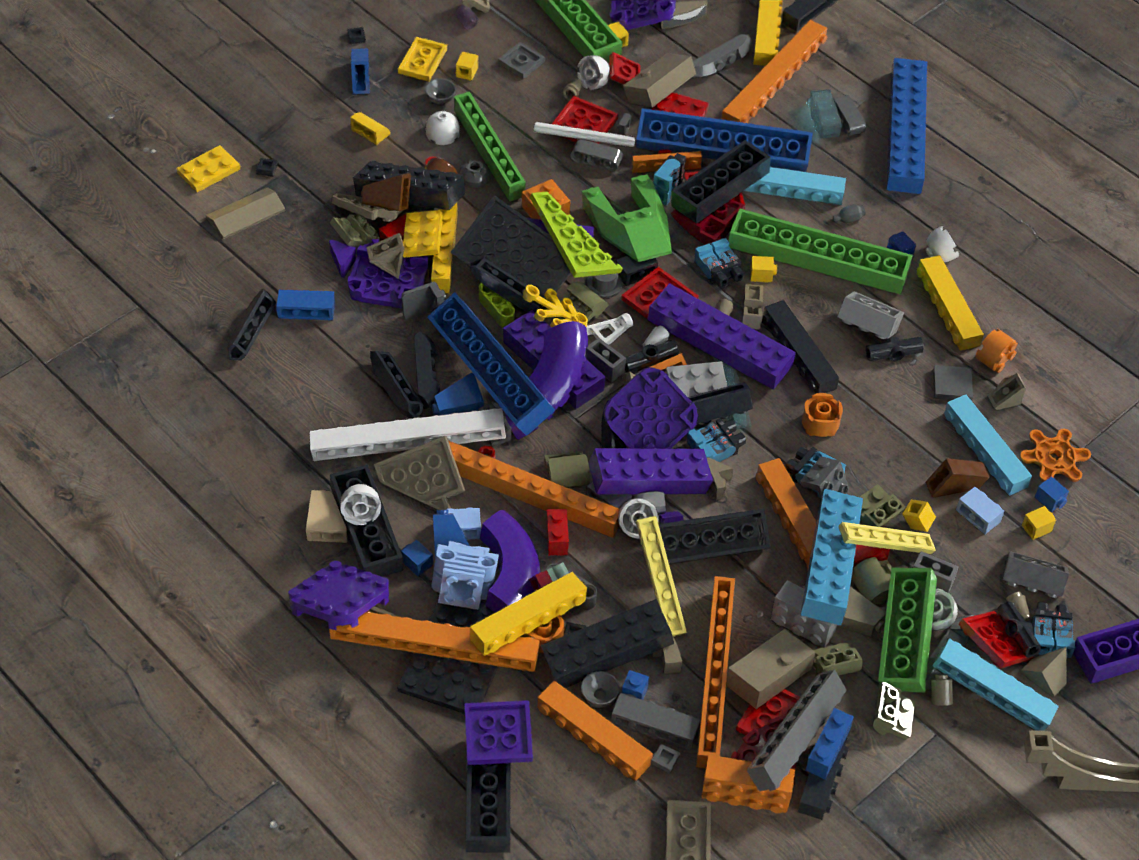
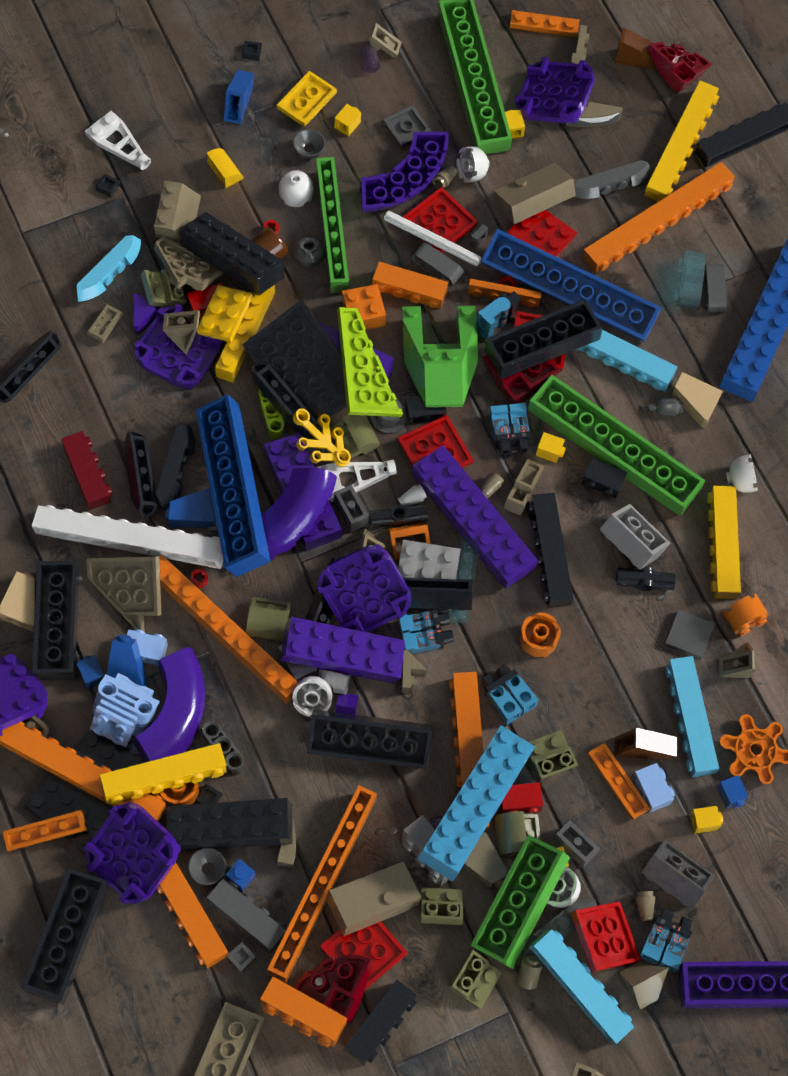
camera: 15 degrees right, 15 degrees up
(208, 168) = (51, 171): yellow plate -> none
(246, 122) = (107, 126): none -> white plate
(246, 212) = (69, 233): dark tan slope -> none
(294, 230) = (113, 263): none -> medium azure brick
(305, 304) = (87, 358): blue brick -> none
(310, 274) = (104, 323): none -> dark tan plate
(339, 169) = (176, 209): none -> dark tan slope
(342, 393) = (86, 470): none -> dark red brick
(360, 504) = (49, 607): white cylinder -> none
(388, 193) = (205, 260): reddish brown slope -> none
(422, 300) = (197, 389): dark grey bracket -> none
(429, 702) = (44, 830): none -> orange plate
(498, 732) = (89, 889): dark purple plate -> none
(530, 675) = (132, 852): none -> dark purple plate
(541, 96) = (409, 176): none -> dark purple brick
(548, 576) = (200, 738): leg -> none
(557, 532) = (232, 685): red brick -> none
(581, 175) = (410, 285): none -> orange brick
(622, 69) = (503, 169): red tile -> none
(660, 573) = (307, 768): light yellow tile -> none
(796, 731) = (364, 979): dark grey brick -> none
(820, 280) = (603, 478): none -> black brick
(826, 475) = (512, 710): dark grey bracket -> none
(829, 743) = (393, 999): blue brick -> none
(874, 198) = (697, 397): none -> tan slope
(886, 538) = (540, 797): light yellow tile -> none
(902, 243) = (703, 461): clear blue brick -> none
(919, 515) = (588, 776): yellow brick -> none
(950, 516) = (618, 781): none -> orange plate
(1019, 629) = (631, 932): black piece -> none

